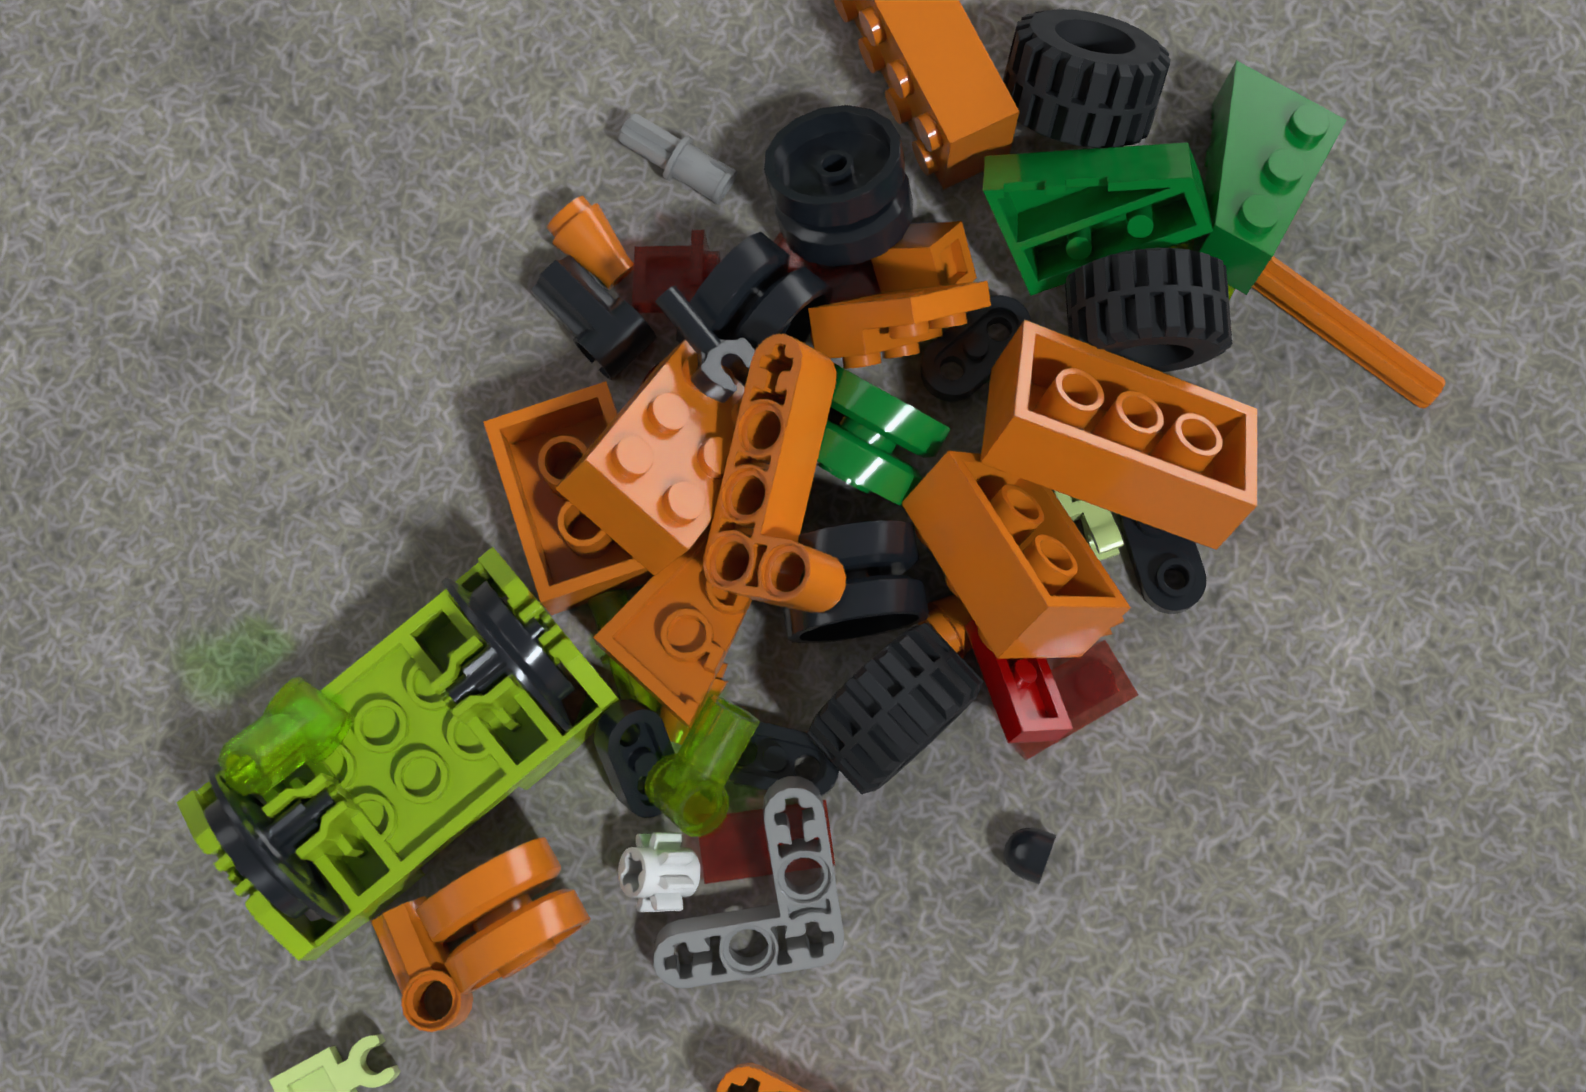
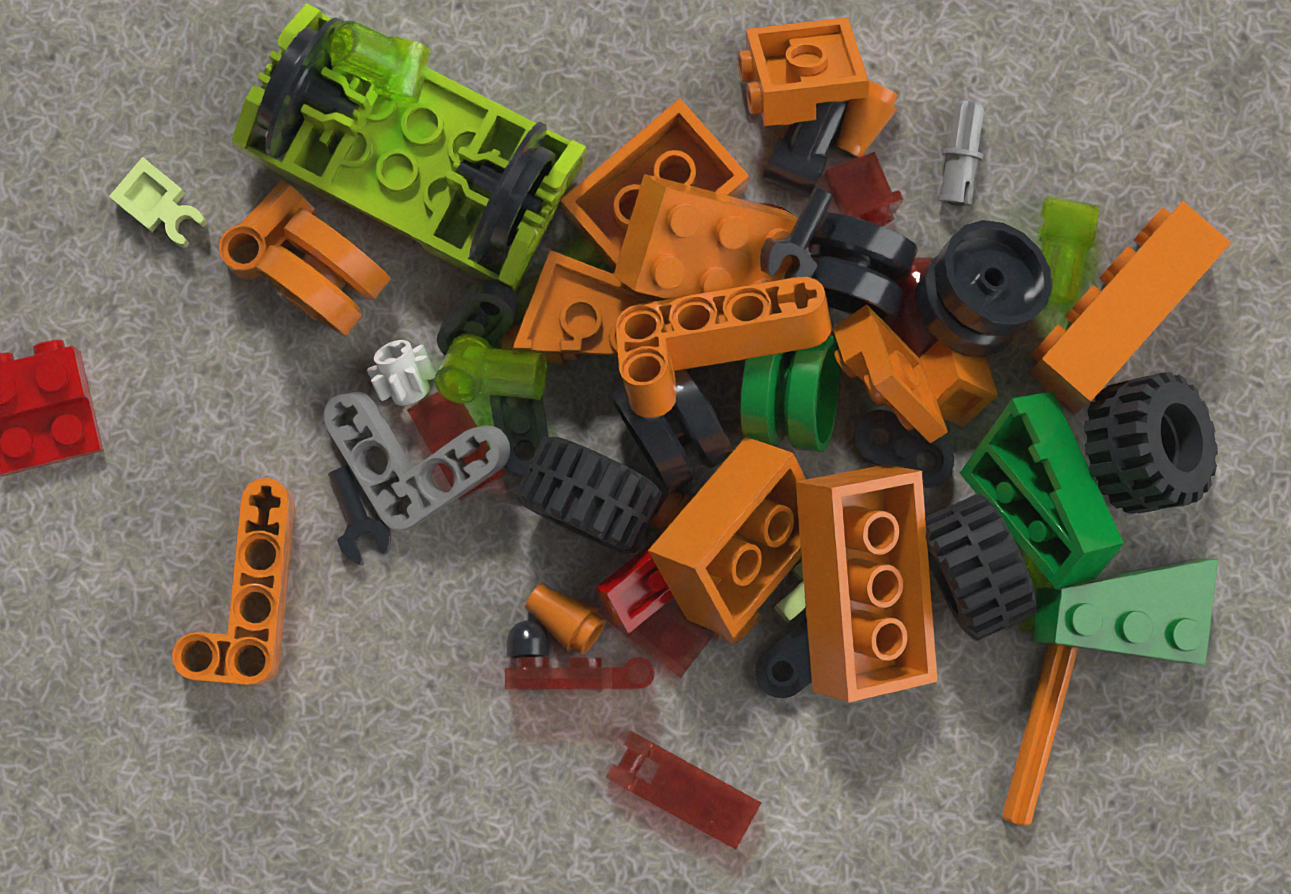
camera: 65 degrees right, 5 degrees up
(509, 282) = (801, 67): none -> orange plate
(804, 996) = (356, 517): none -> black bar
(812, 80) = (1064, 239): none -> clear neon green piece
(1020, 797) = (566, 618): none -> orange cone
(1095, 805) = (583, 674): none -> clear red plate
(1271, 741) = (685, 791): none -> clear red plate

